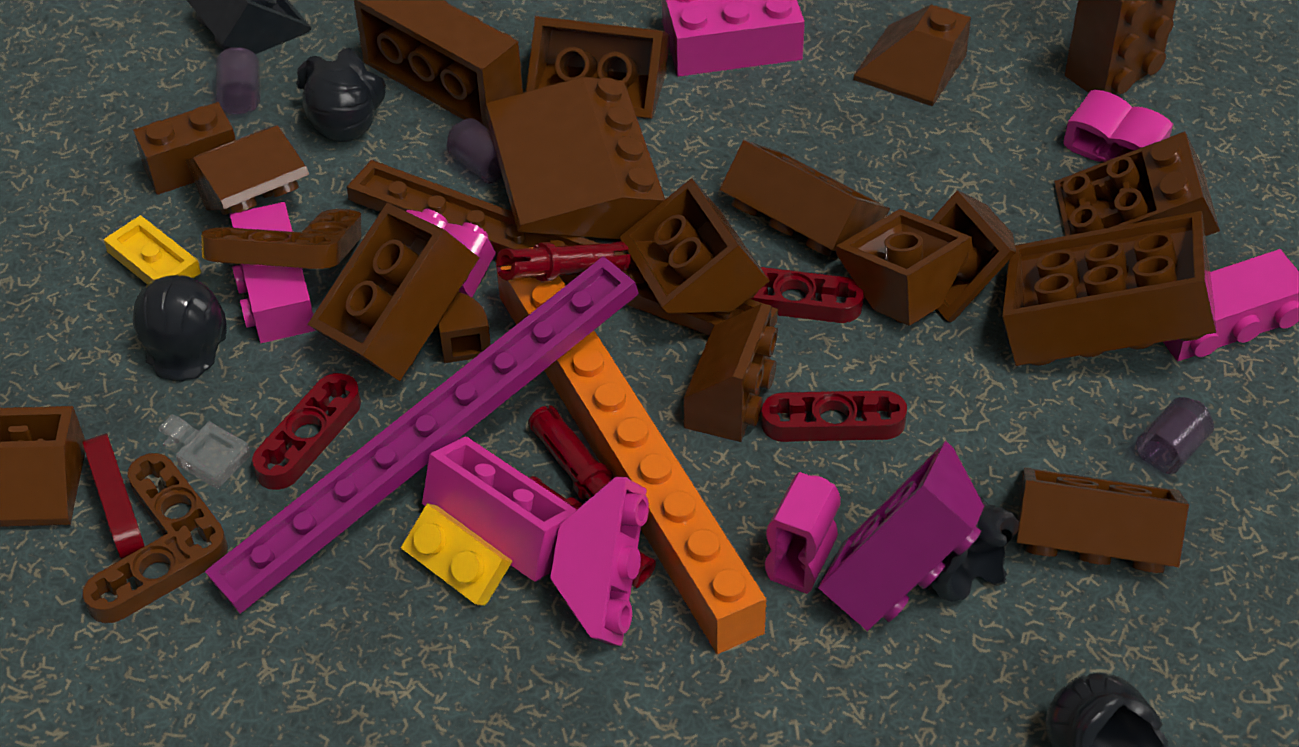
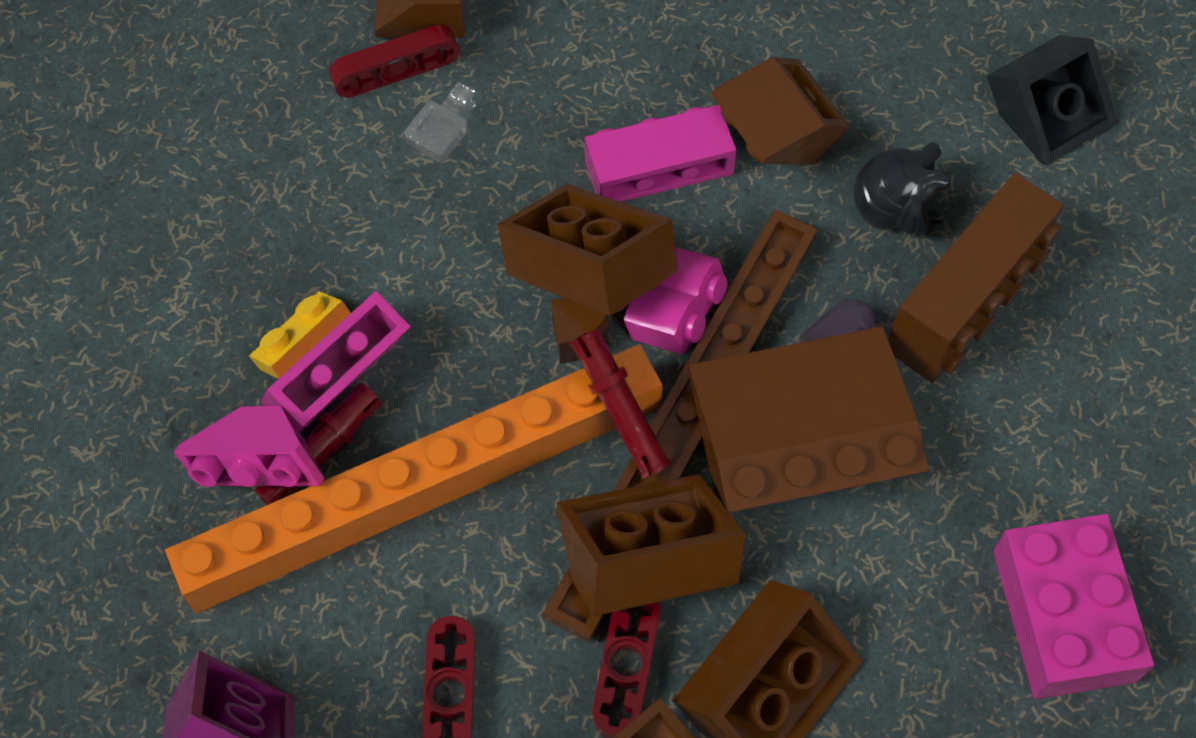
camera: 90 degrees right, 15 degrees up
(149, 252) = (687, 55): yellow plate -> none
(171, 141) = (832, 59): reddish brown brick -> none
(175, 547) = (343, 117): reddish brown beam -> none
(179, 326) = (582, 83): black hair -> none
(238, 80) = (937, 99): clear purple brick -> none
(304, 451) = (454, 189): dark red beam -> none
(316, 247) = (665, 173): reddish brown beam -> none
(429, 425) = (430, 304): magenta plate -> none
(569, 452) = (401, 435): dark red pin -> none
(596, 50) = (985, 452): reddish brown slope -> none
(731, 375) = (486, 582): reddish brown slope -> none
(802, 532) = (265, 638): dark pink brick -> none

